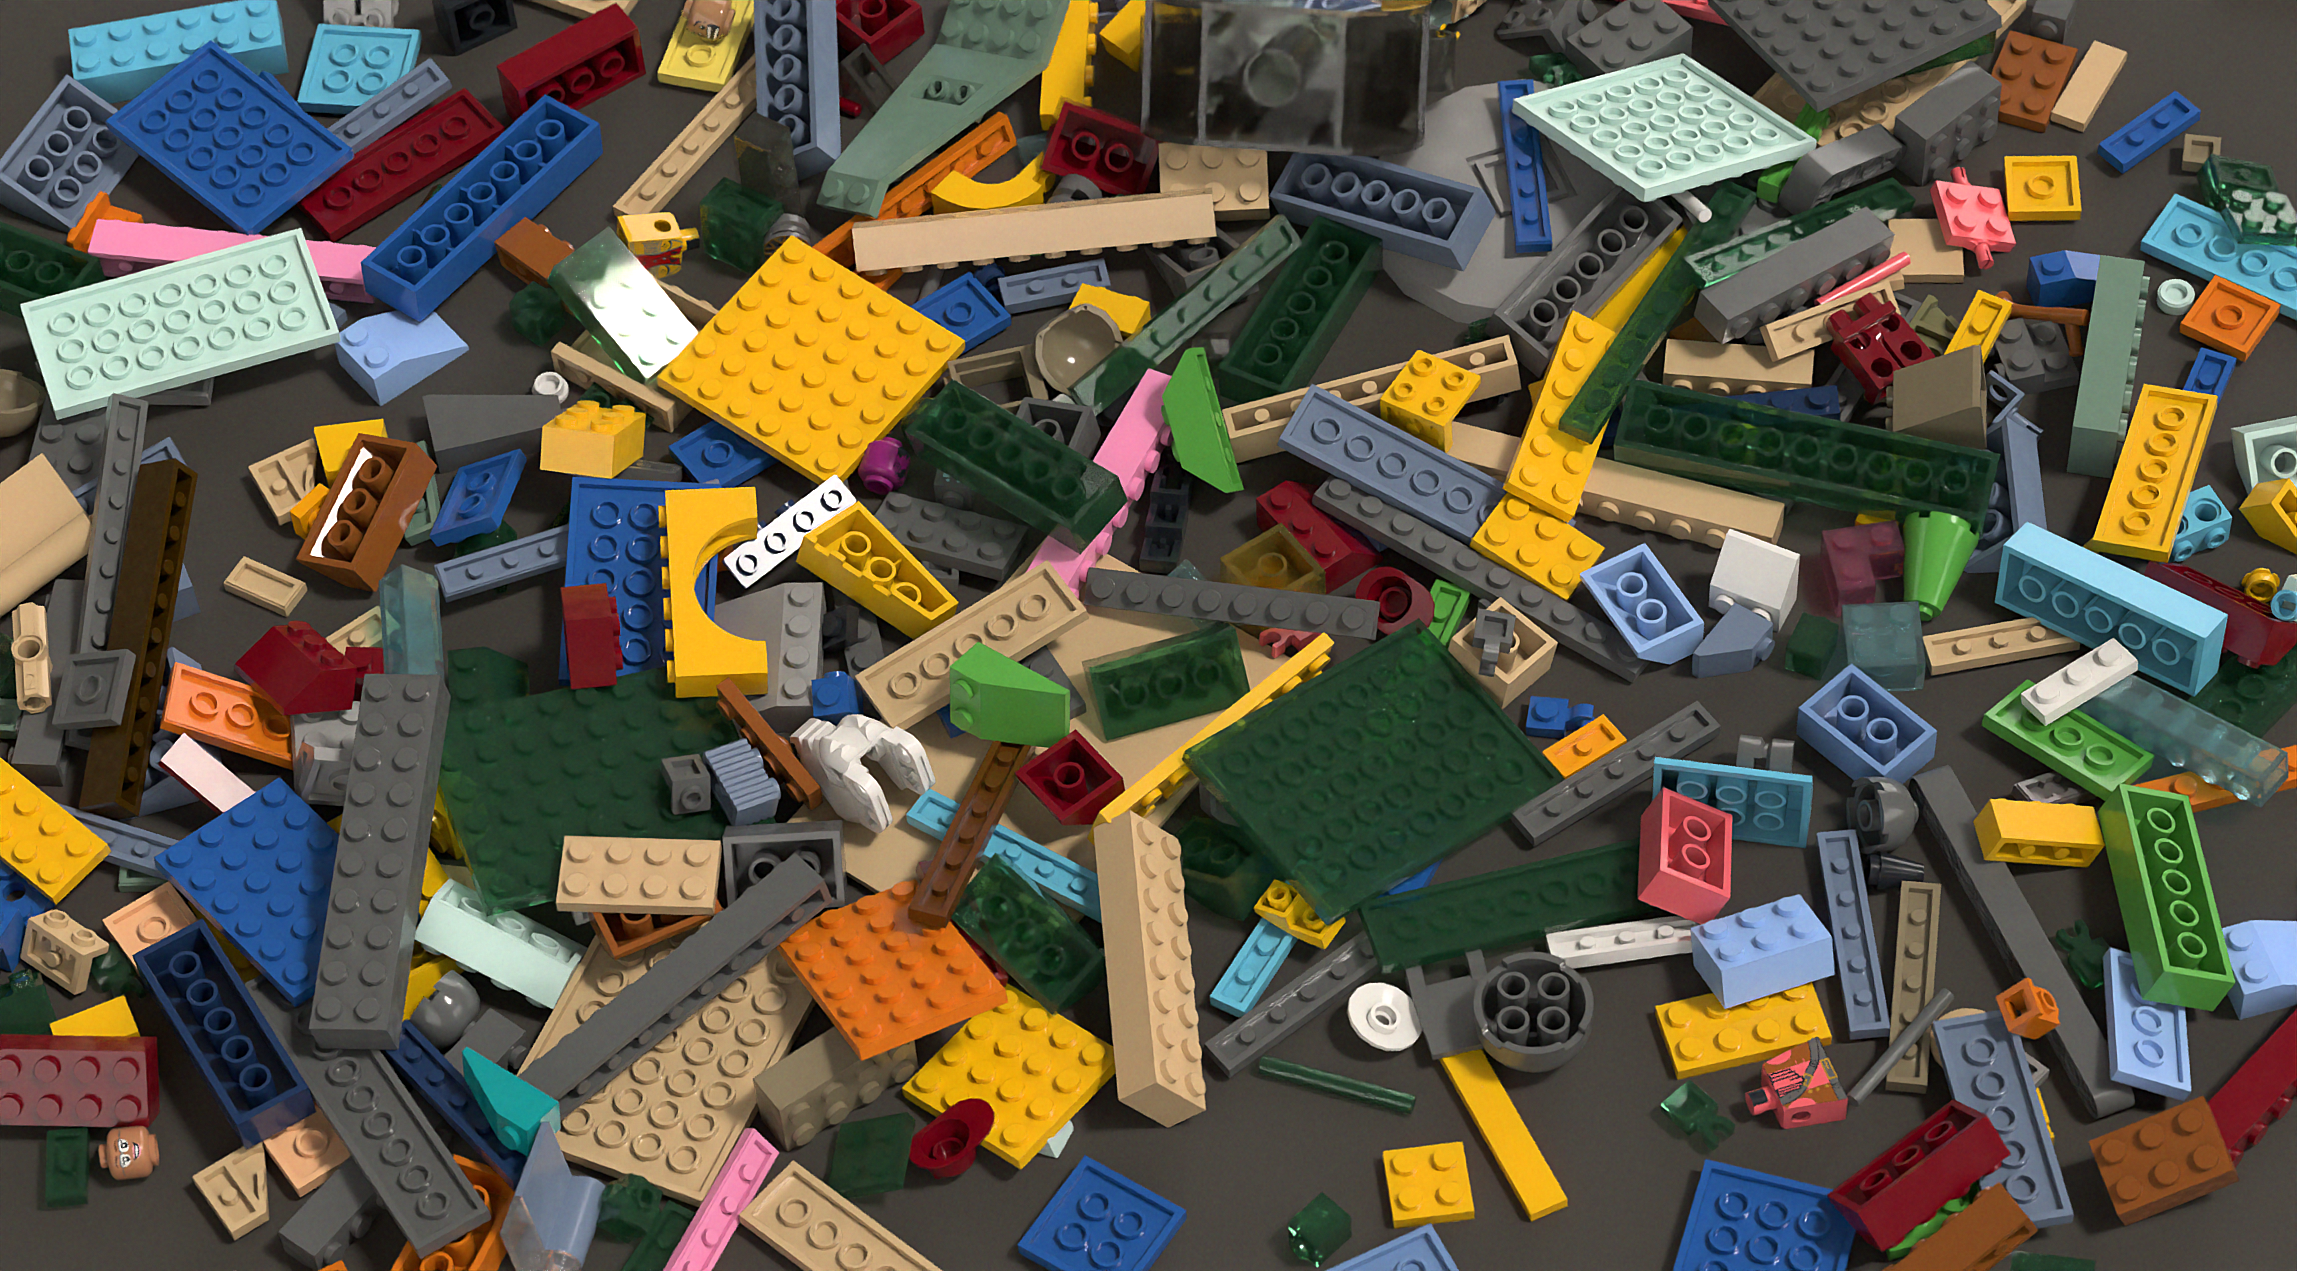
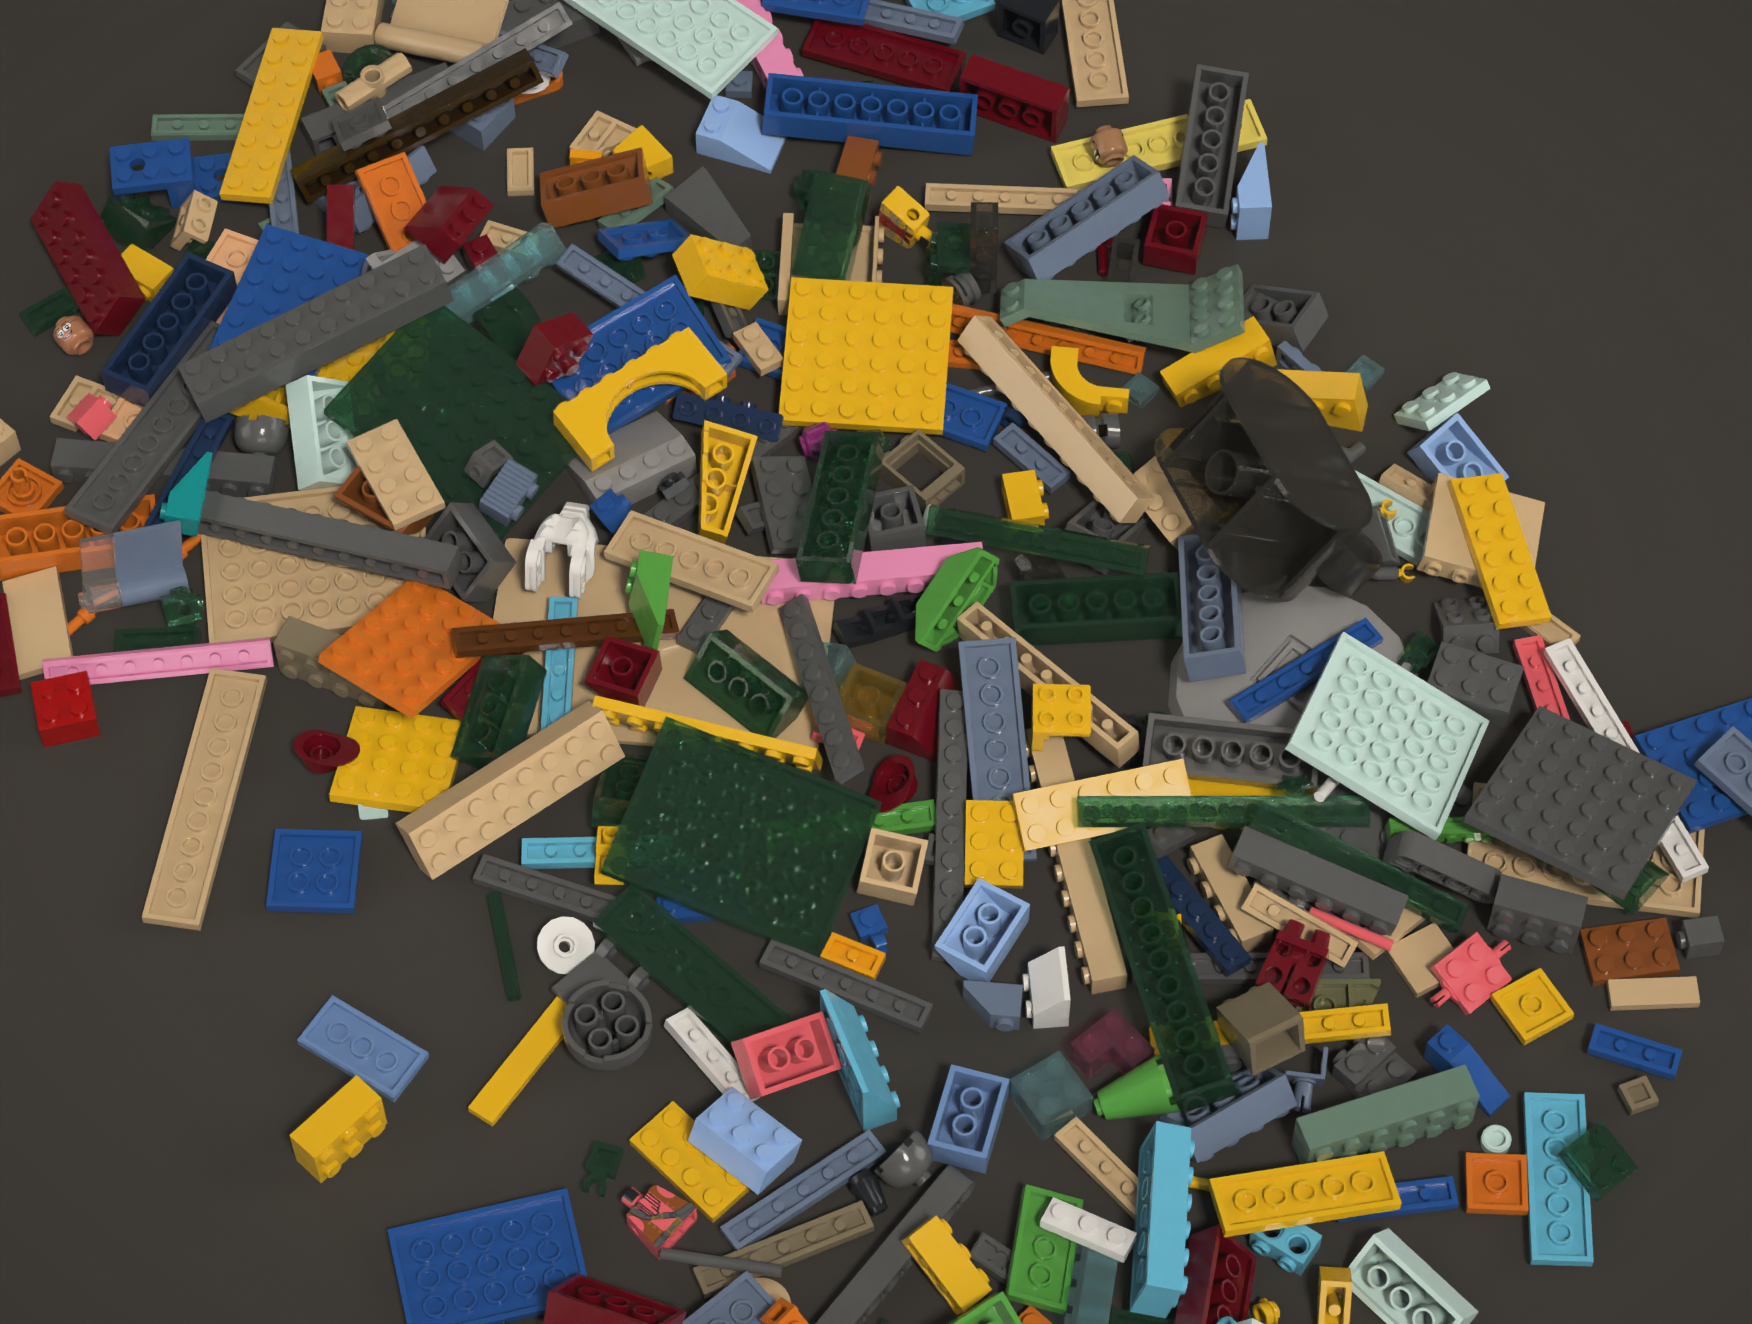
camera: 55 degrees right, 5 degrees up
(276, 1179) = (92, 415): none -> coral brick
(551, 384) = (763, 231): white plate -> none
(716, 461) = (758, 349): none -> tan plate
(775, 750) = (550, 495): dark orange plate -> none
(872, 1155) = (292, 715): clear green plate -> none
(1074, 344) = (974, 489): dark tan cylinder -> none
(1099, 148) = (1148, 410): dark red slope -> none
(1319, 1230) = (383, 990): clear green brick -> none
(1428, 1185) = (459, 1037): yellow plate -> none
(1493, 634) = (884, 848): dark grey plate -> none
(1673, 230) = (1294, 786): none -> clear green plate
(1778, 753) = (906, 1069): dark grey wheel -> none
(1811, 646) = (1025, 1050): clear green brick -> none
(2069, 316) = (1401, 1034): dark orange piece -> none
(2233, 174) = (1627, 1129): clear green plate -> none

